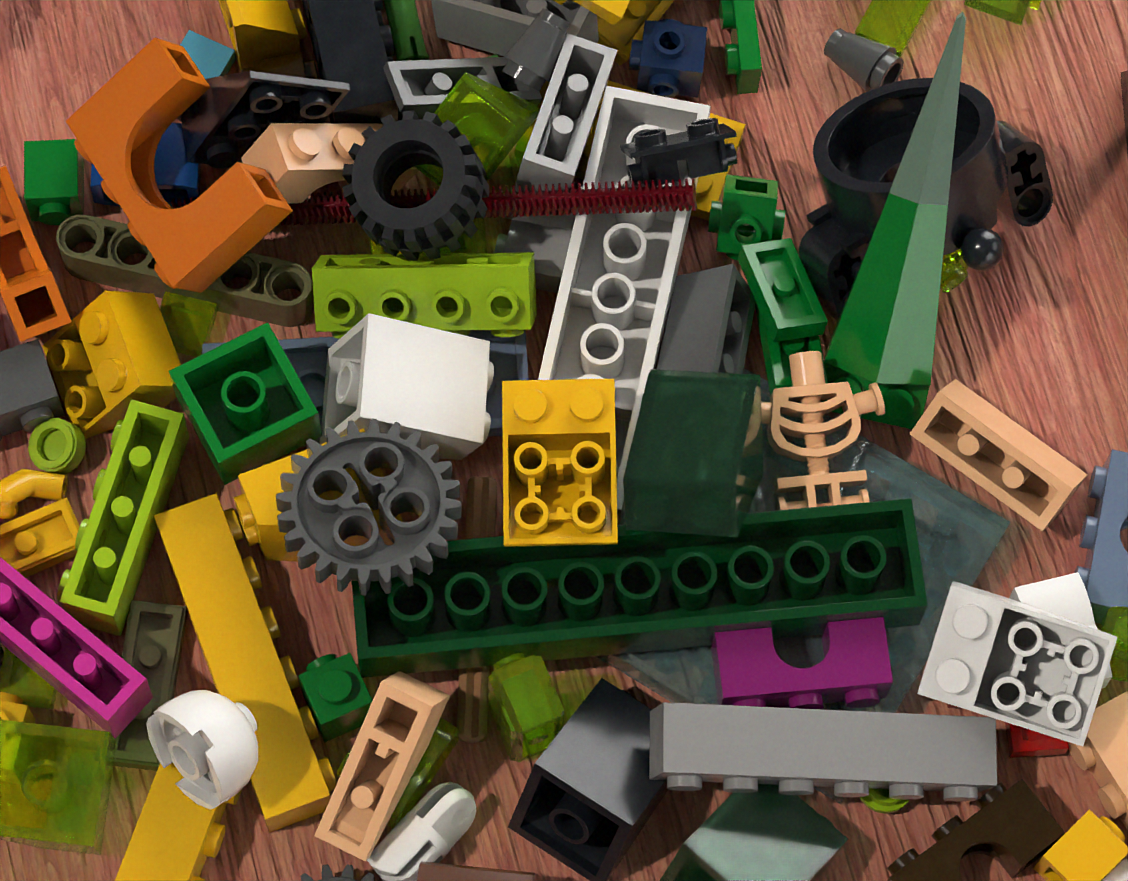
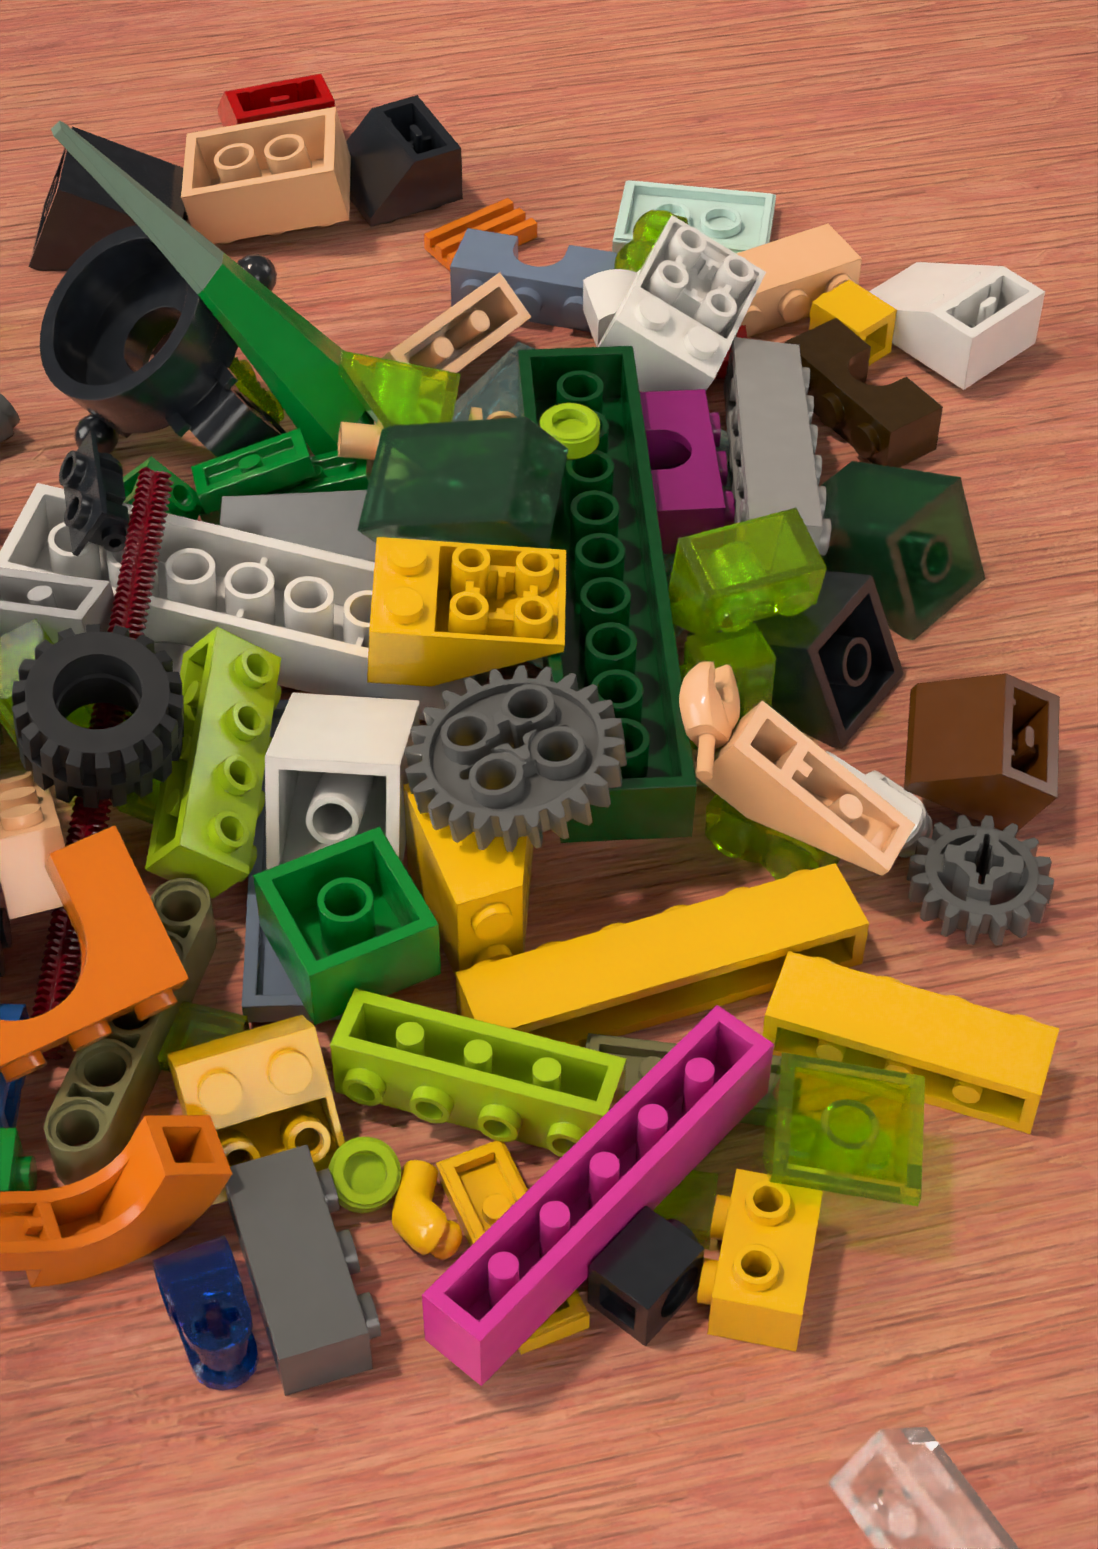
camera: 85 degrees left, 20 degrees down
(208, 744) = (806, 940): white cylinder -> none
(335, 695) = (705, 862): green brick -> none
(430, 670) = (709, 711): none -> light nougat hand
(585, 699) = (745, 573): none -> clear neon green slope
(786, 545) = (574, 427): none -> lime tile
(830, 392) = (399, 390): none -> clear neon green slope

